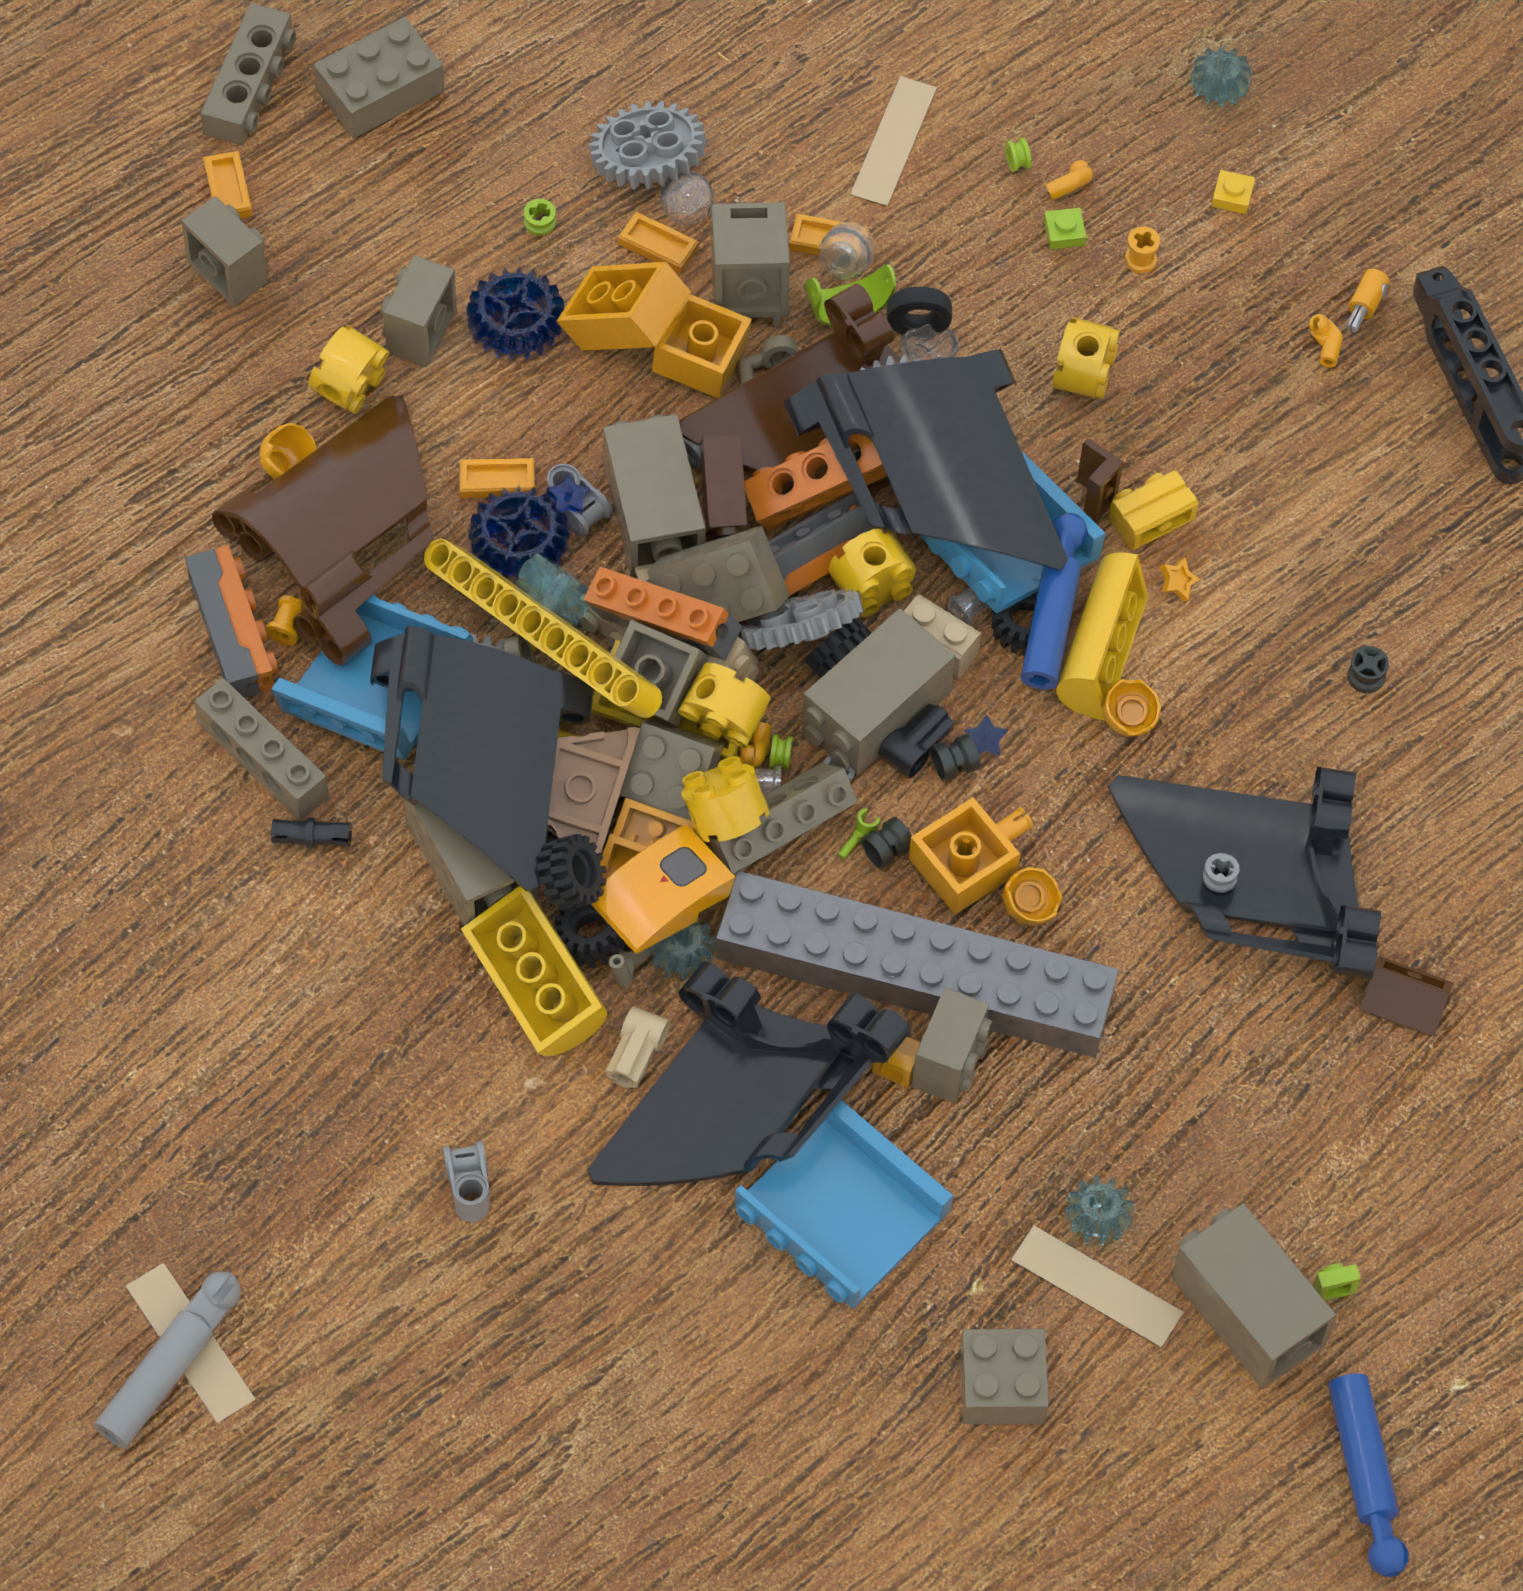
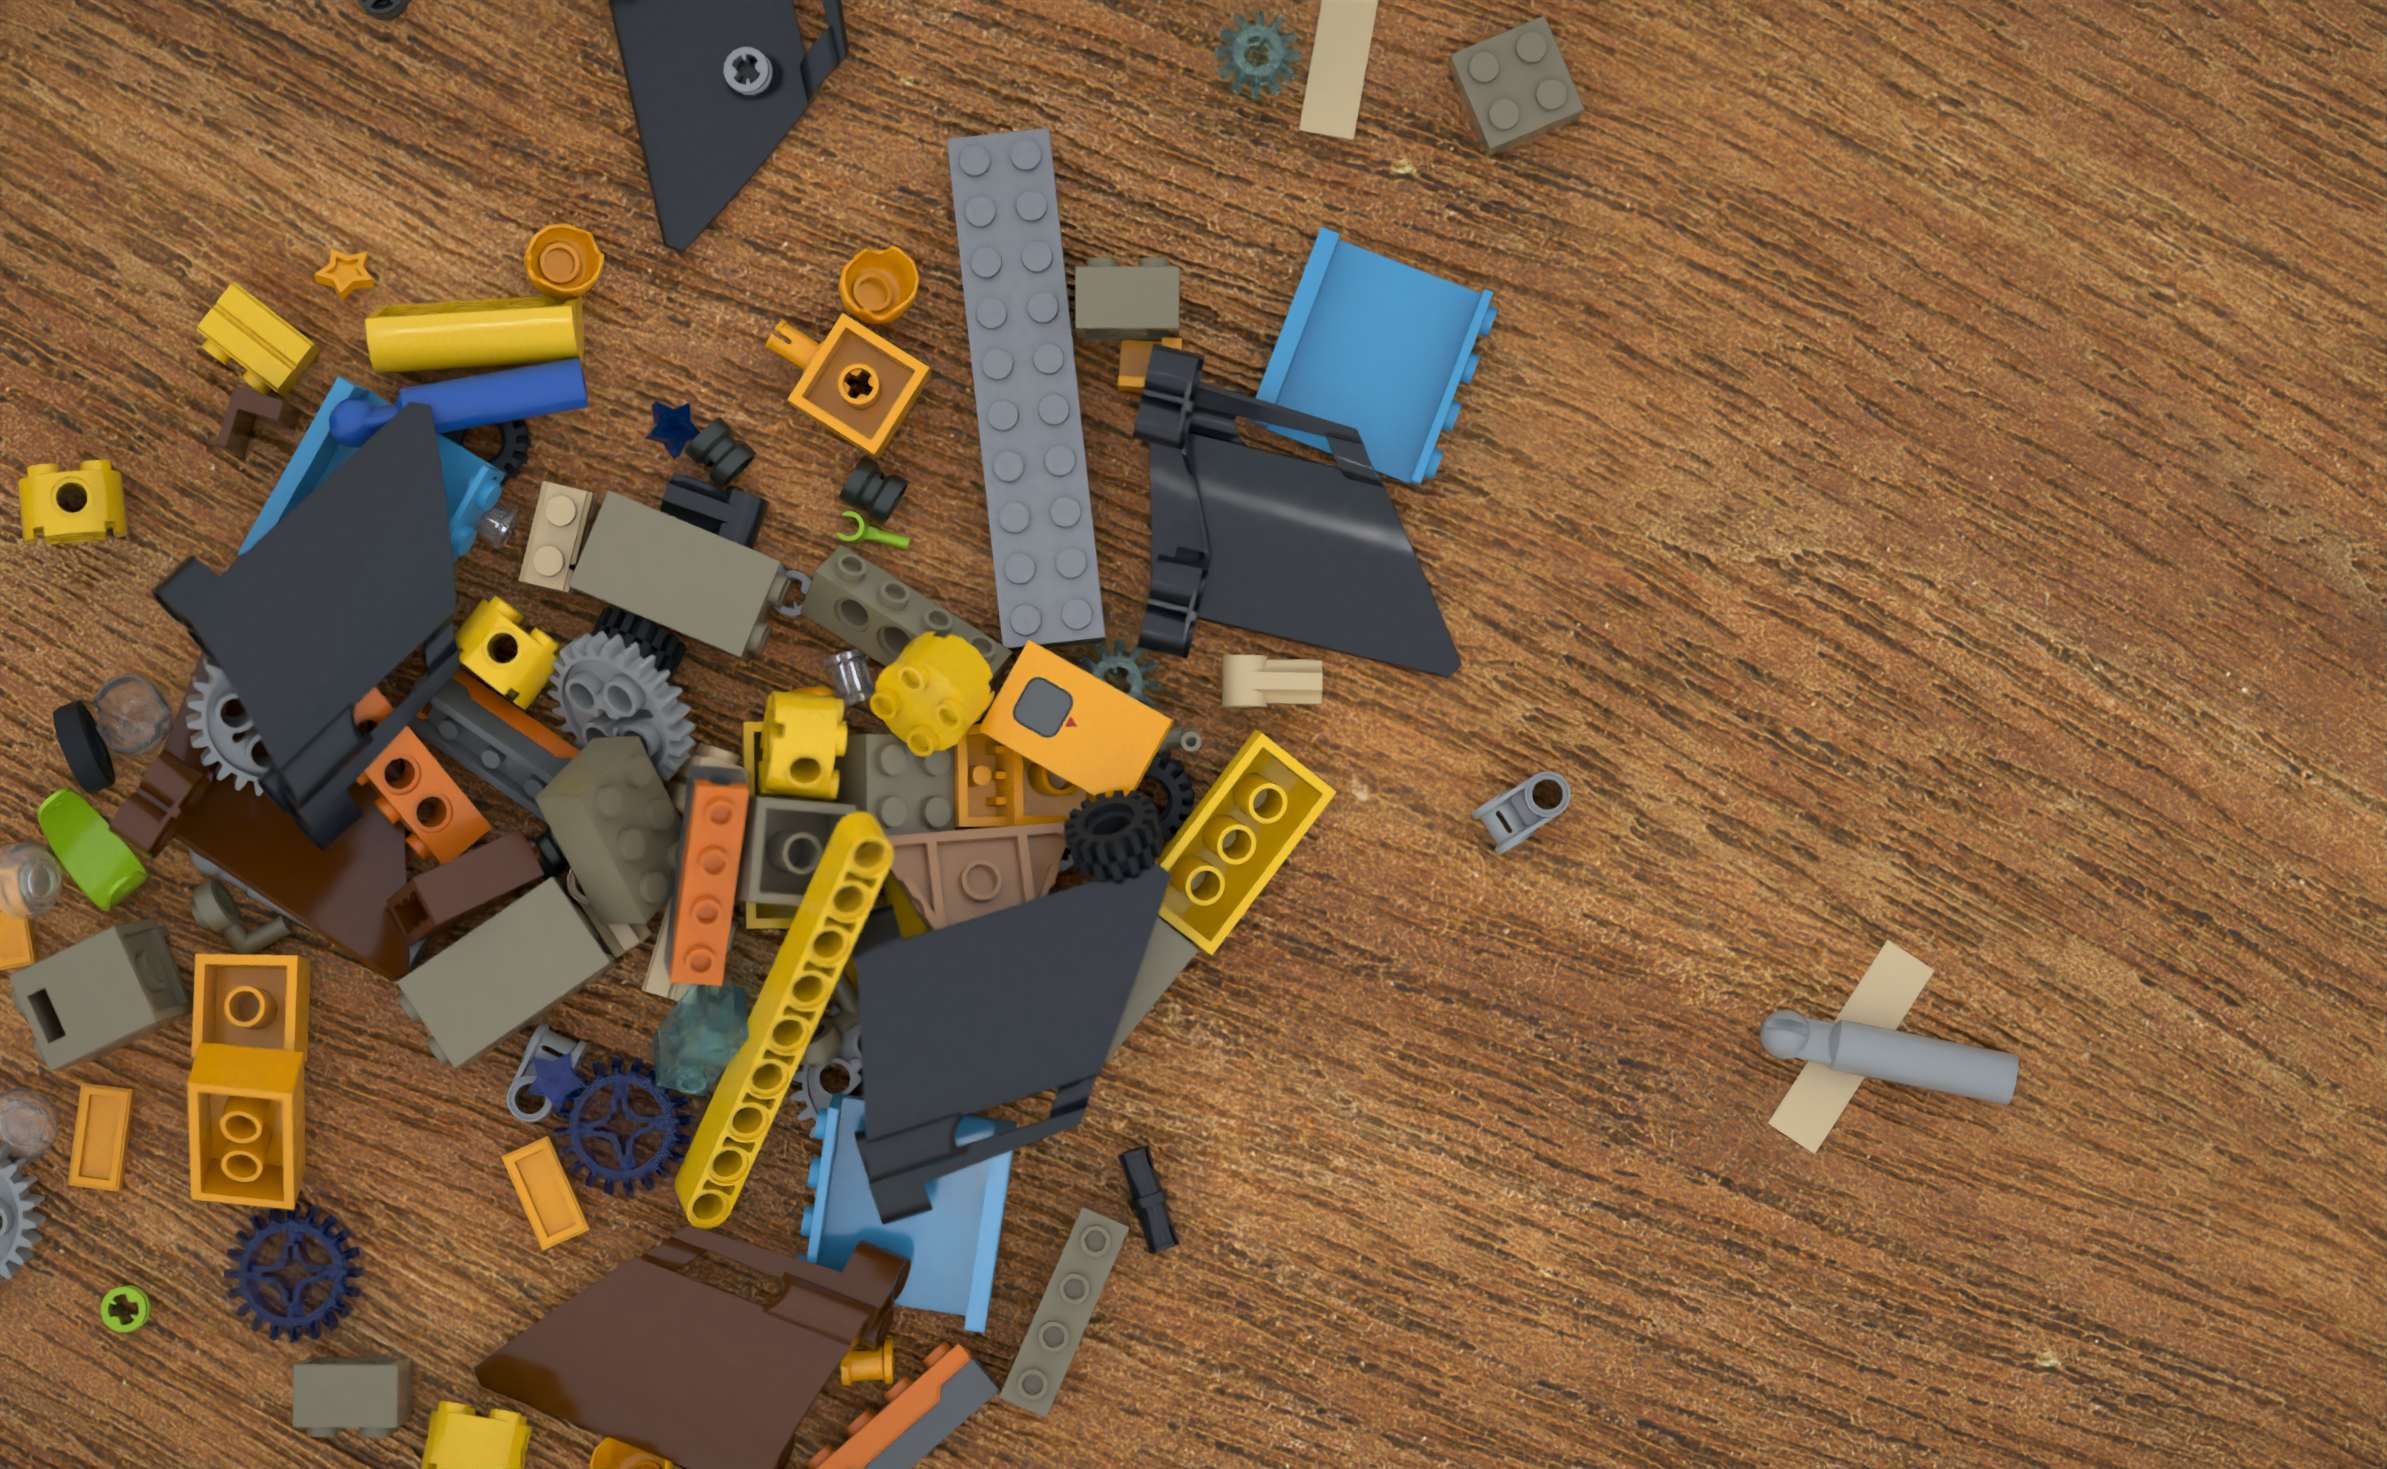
camera: 110 degrees left, 25 degrees up
(781, 752) = (800, 670): lime bush -> none

